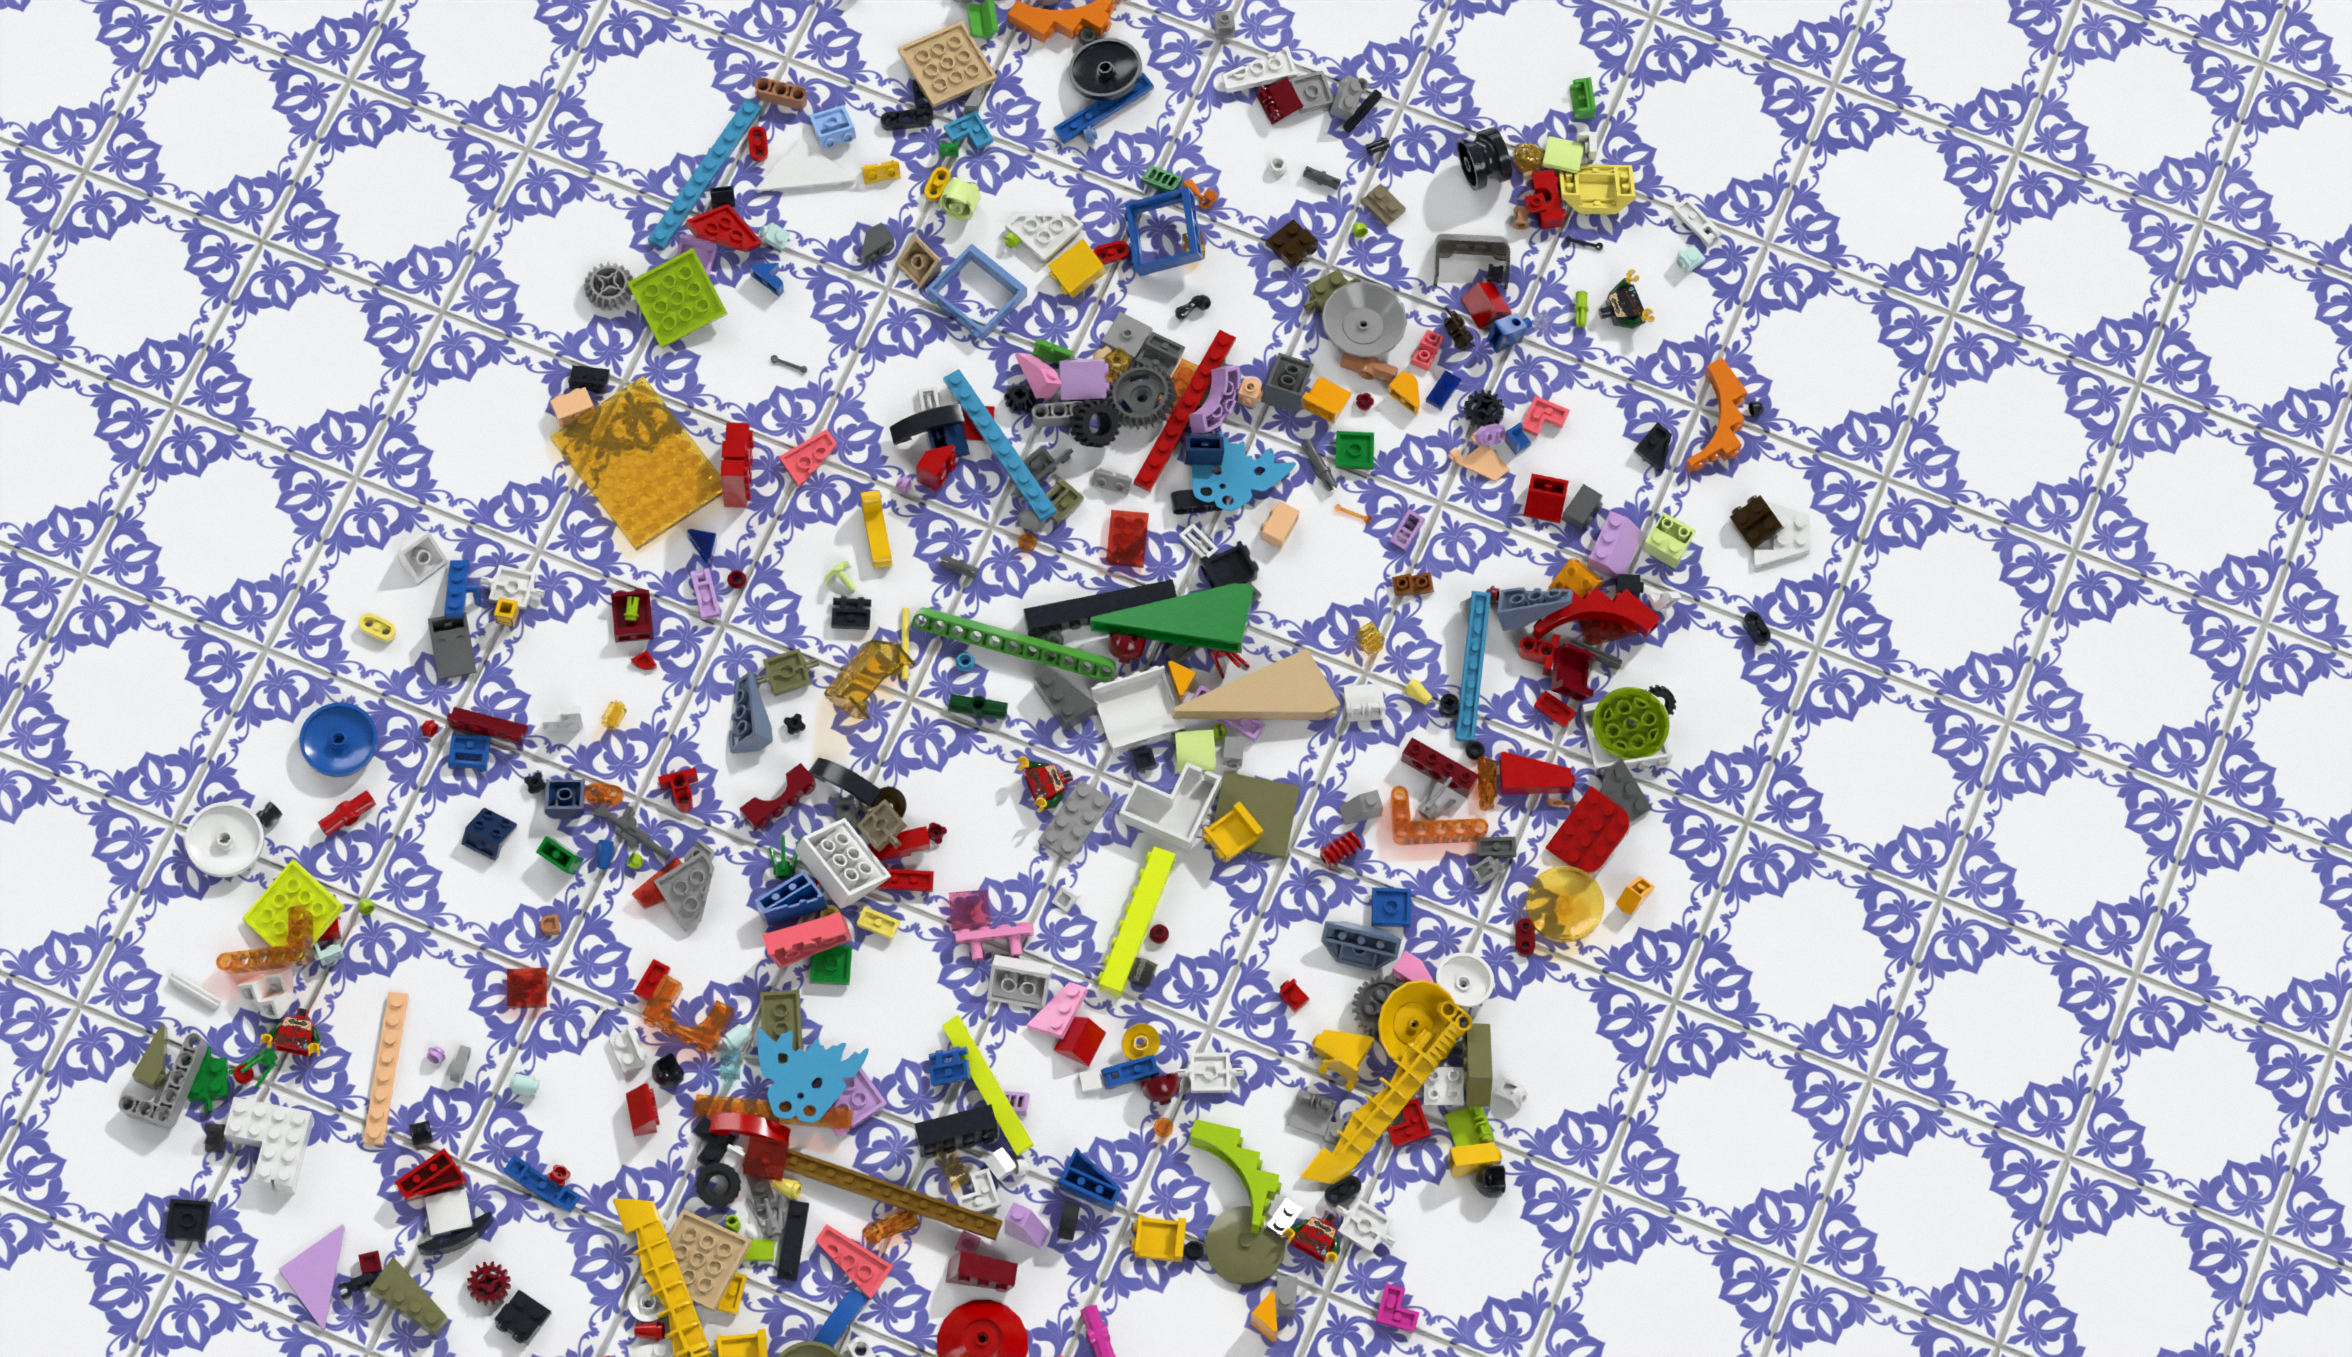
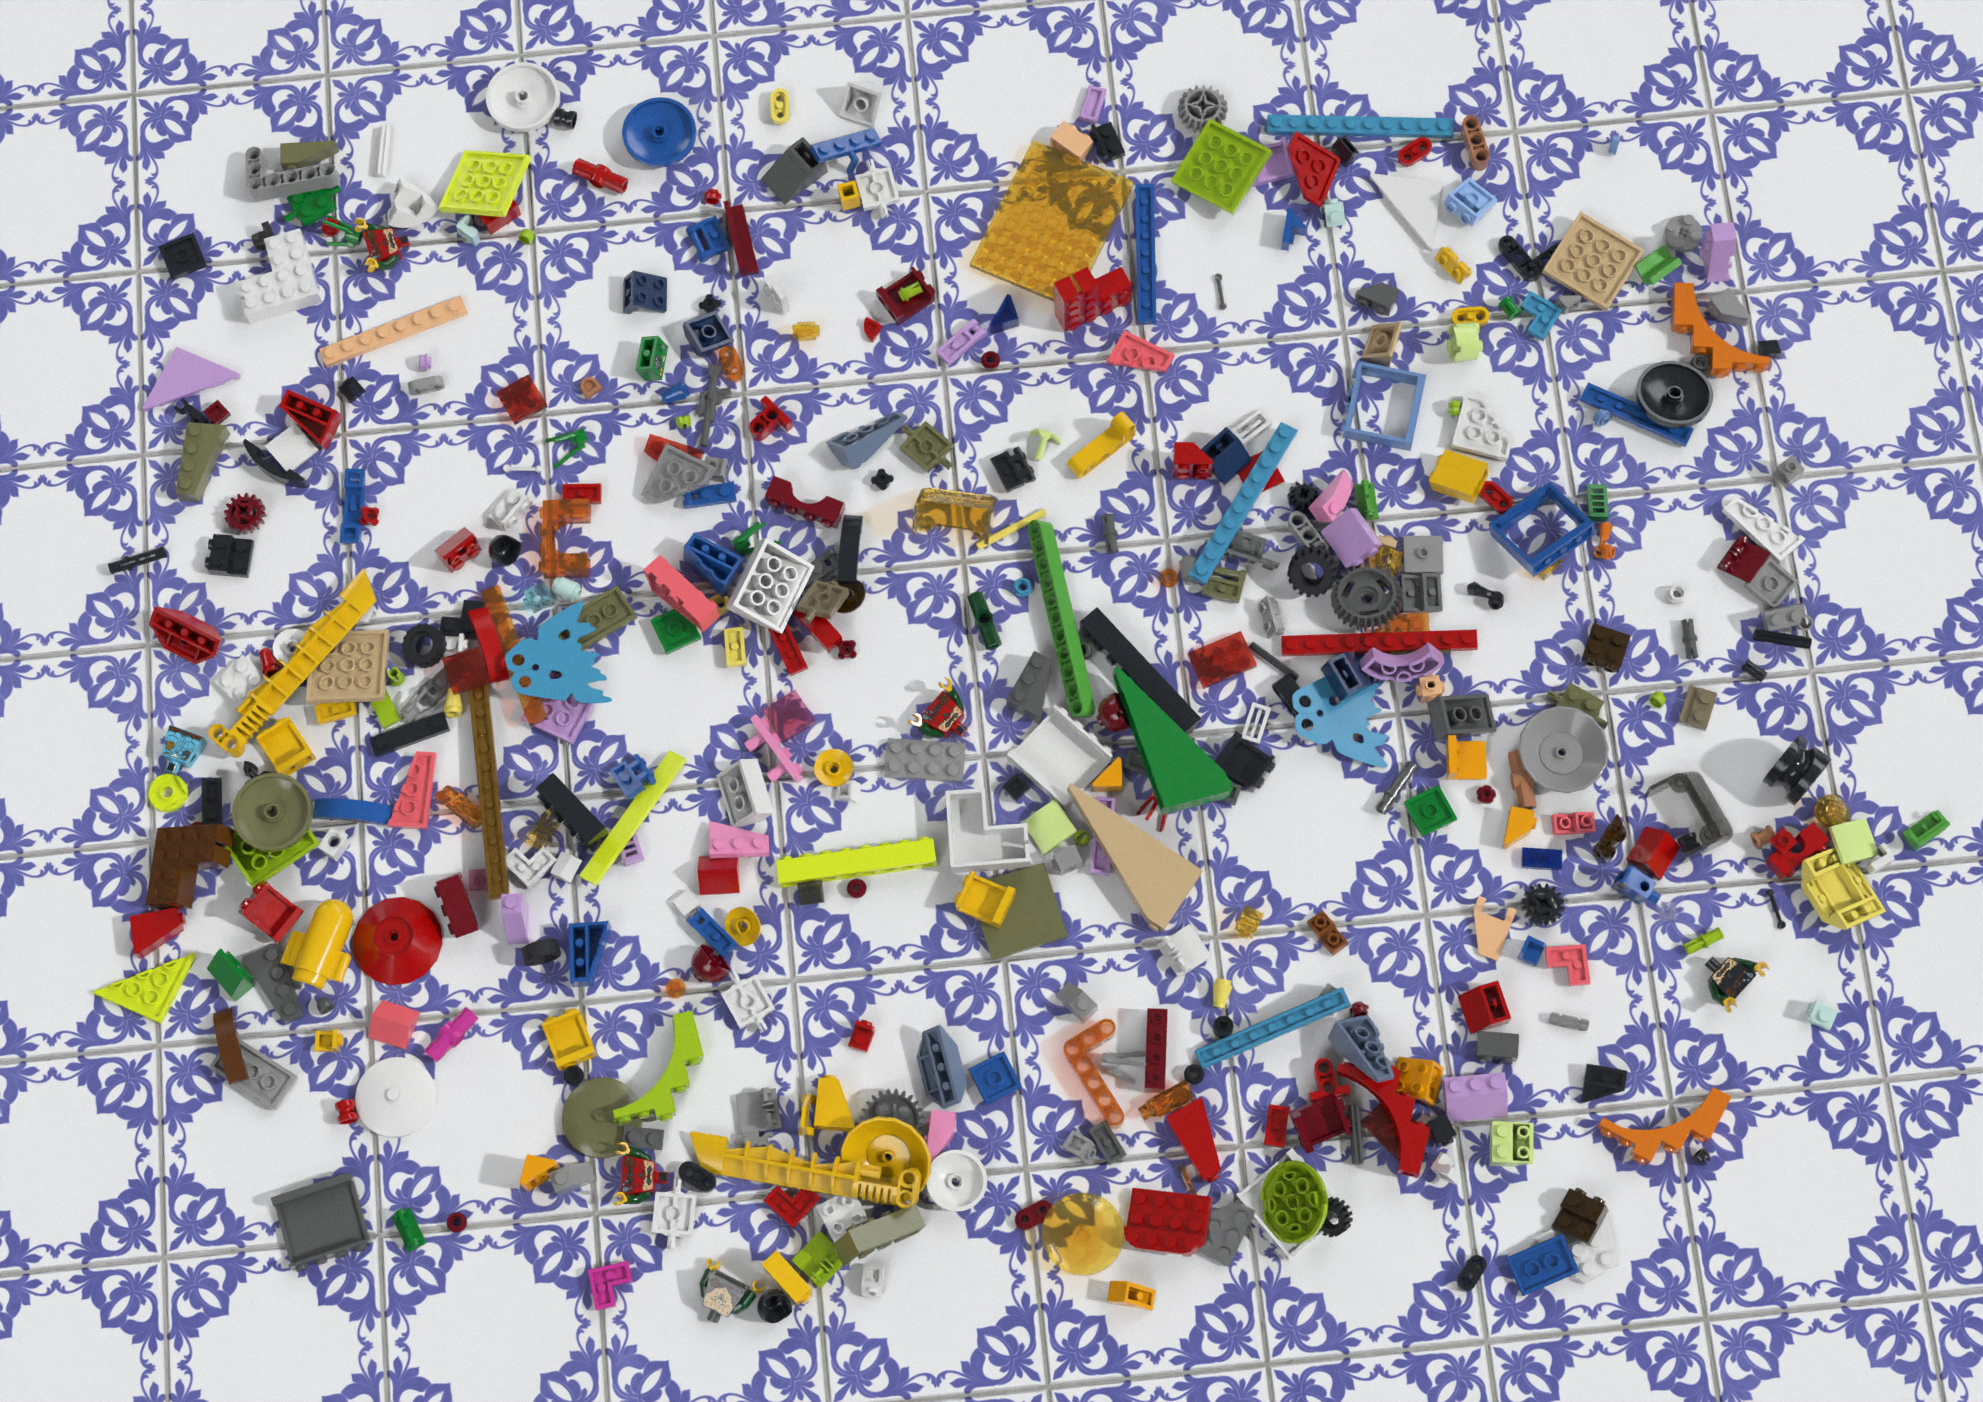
camera: 70 degrees right, 5 degrees up
(274, 954) = (448, 202): clear orange beam -> none
(524, 1085) = (433, 445): light aqua brick -> none
(544, 372) = (1092, 104): none -> lavender tile
(595, 959) = (577, 438): none -> green plant
(716, 402) = (1145, 254): none -> blue plate
(723, 868) = (711, 495): none -> blue plate
(903, 484) = (1161, 446): lavender plate -> none
(926, 421) = (1227, 430): black slope -> none
(1022, 1167) = (574, 887): white hinge -> none
(1039, 888) = (830, 759): none -> yellow dish
(1150, 500) = (1272, 660): none -> black bar
(1280, 524) = (1315, 784): light nougat brick -> none
(1339, 848) = (1023, 1003): red piece -> none
(1367, 519) = (1369, 859): clear orange hinge -> none
(1416, 517) = (1379, 892): lavender slope -> none
(1458, 1216) = (724, 1293): none -> torso
(1490, 435) = (1517, 923): lavender plate -> none
(1591, 444) = (1568, 1021): none -> light grey axle
(1697, 221) = (1865, 1001): white plate -> none
(1779, 571) = (1542, 1264): none -> blue tile

